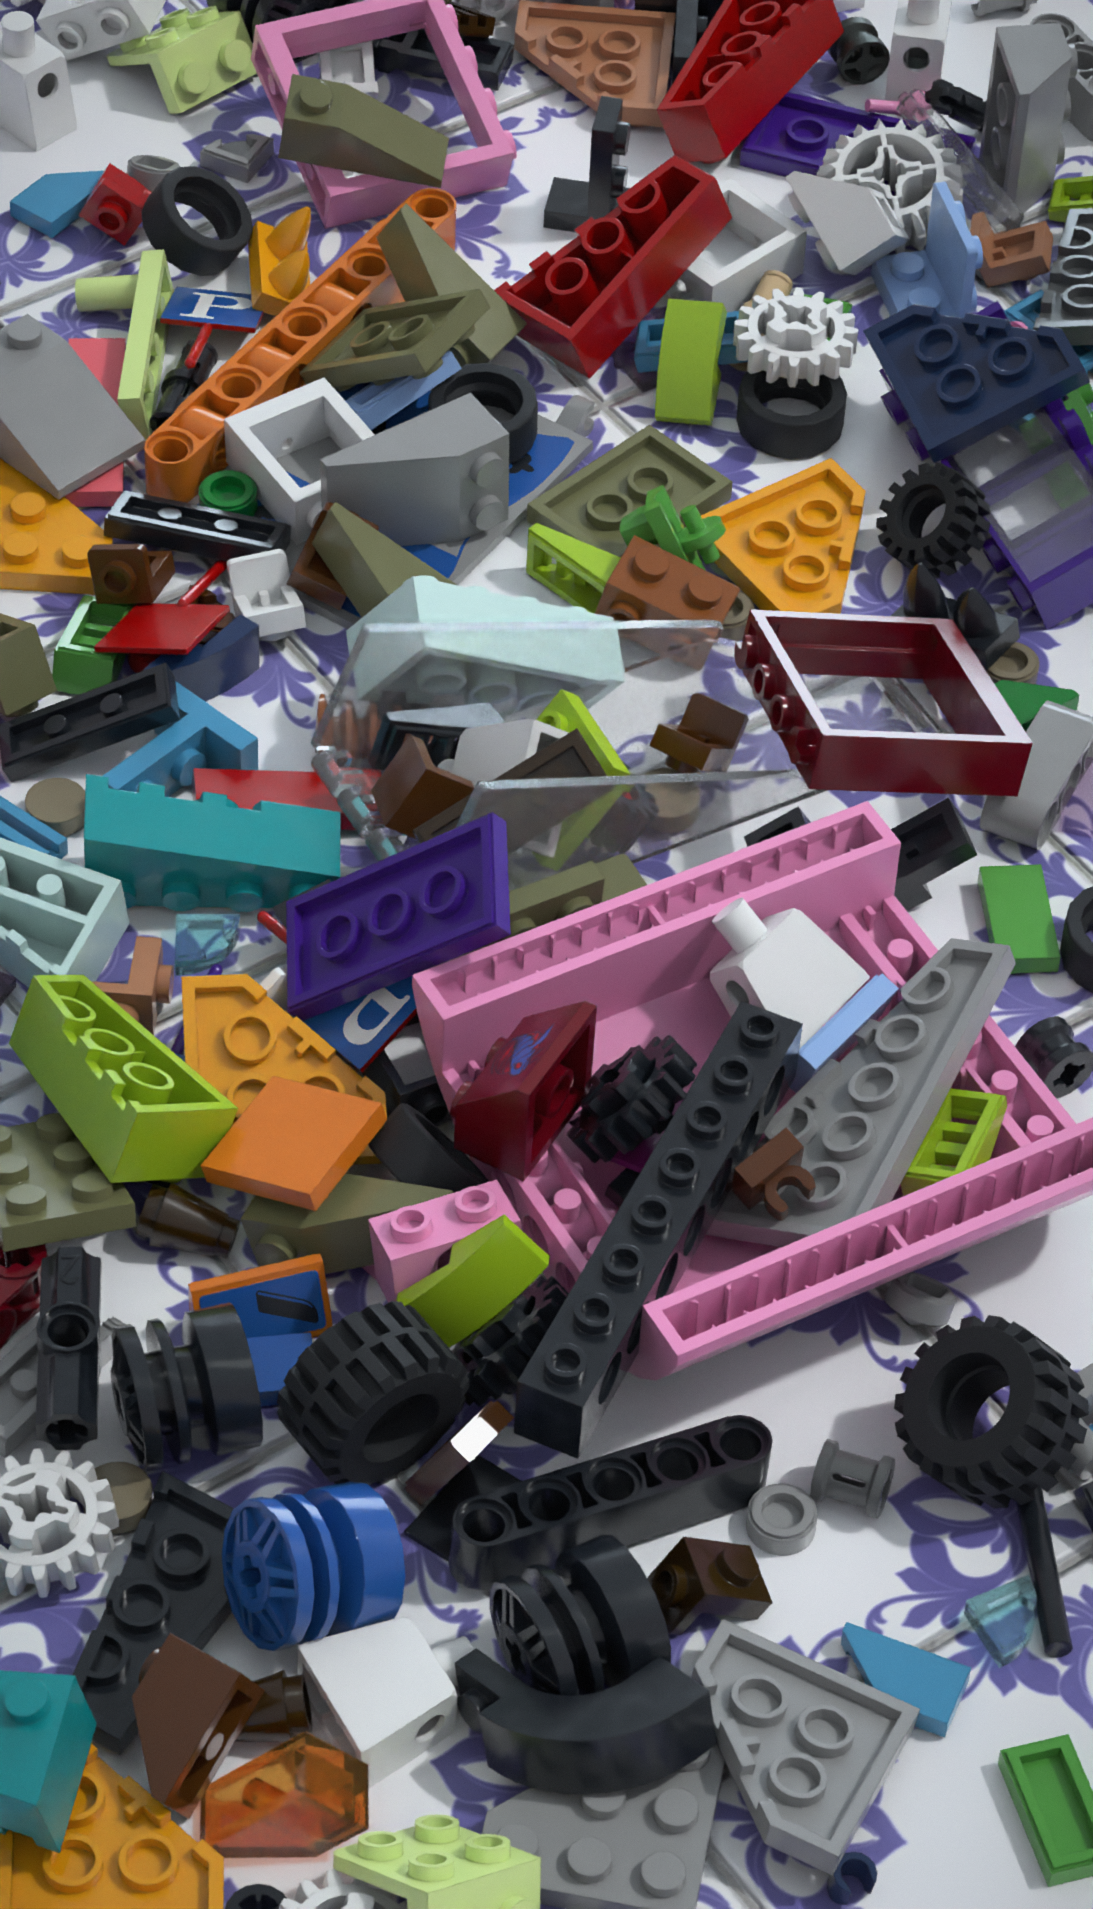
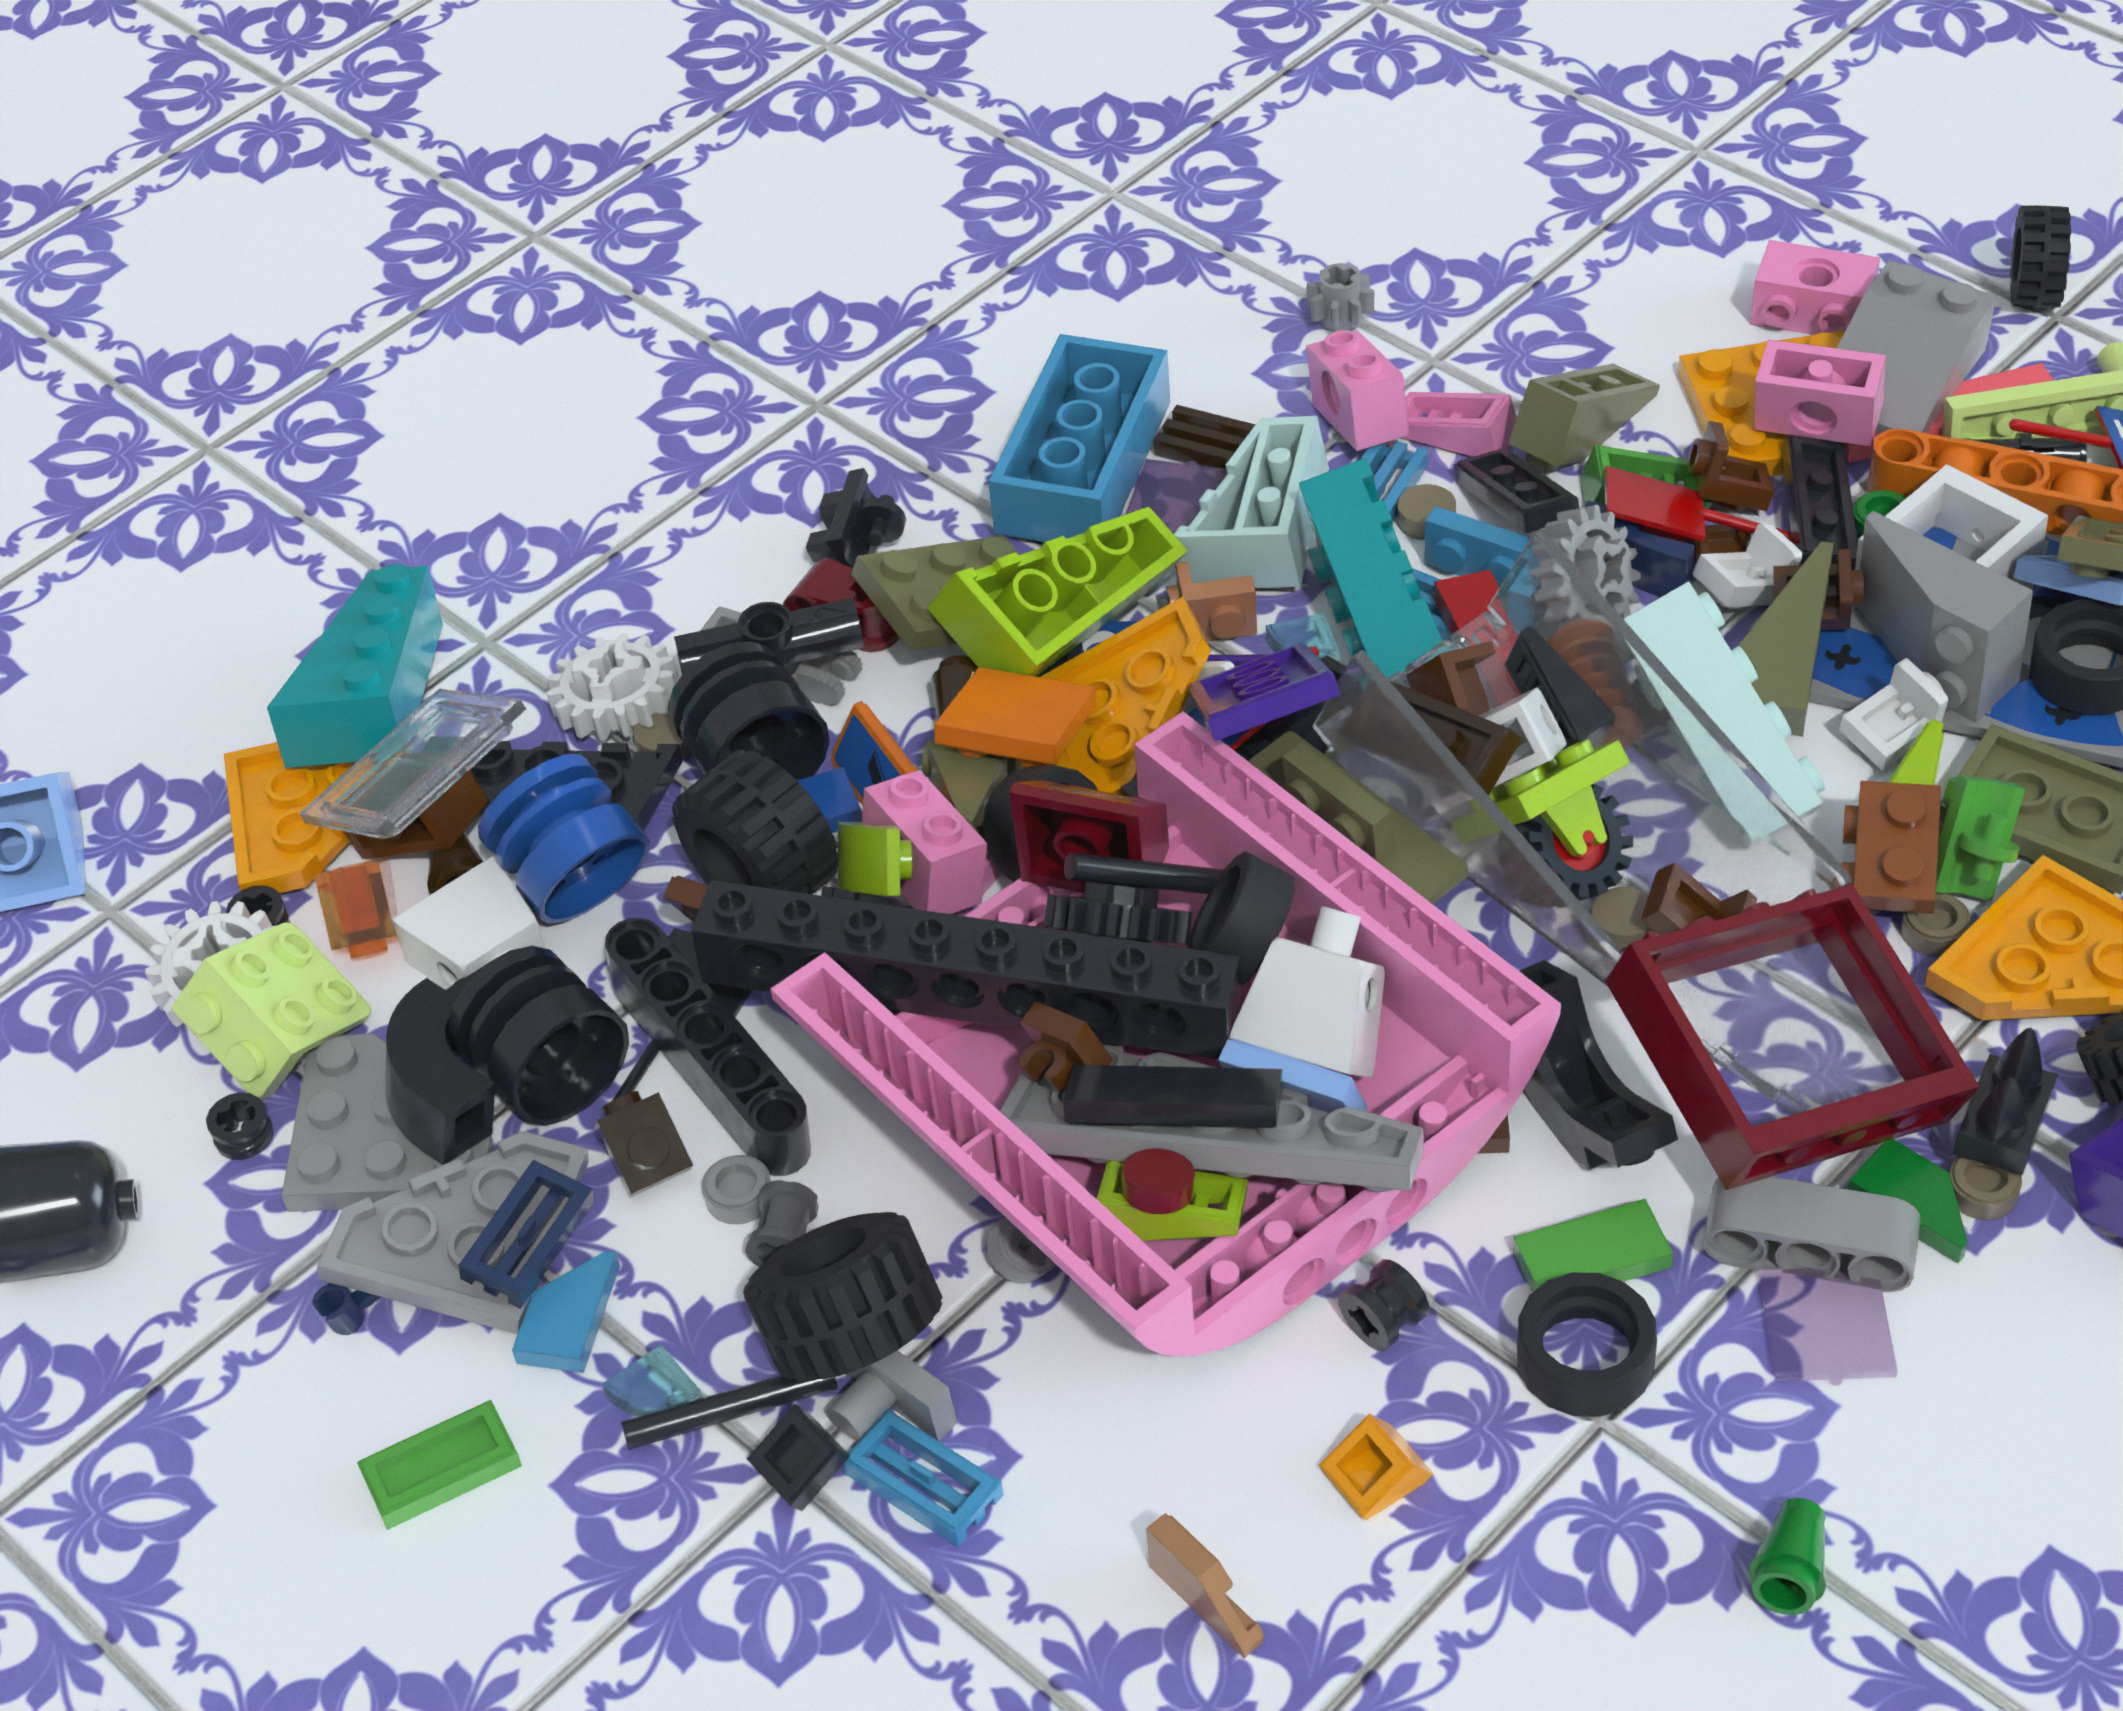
camera: 85 degrees right, 0 degrees up
(90, 467) = (1819, 392): none -> bright pink brick
(182, 1670) = (414, 764): none -> clear piece
(246, 692) = (1598, 553): none -> light grey gear
(492, 555) = (1895, 715): none -> white bracket
(608, 1053) = (1140, 873): none -> black bar
(701, 962) = (1244, 912): none -> black tyre
(823, 1683) = (499, 1279): none -> dark blue tile
(863, 1100) = (1173, 1096): none -> black tile
(957, 1131) = (1158, 1181): none -> dark red tile

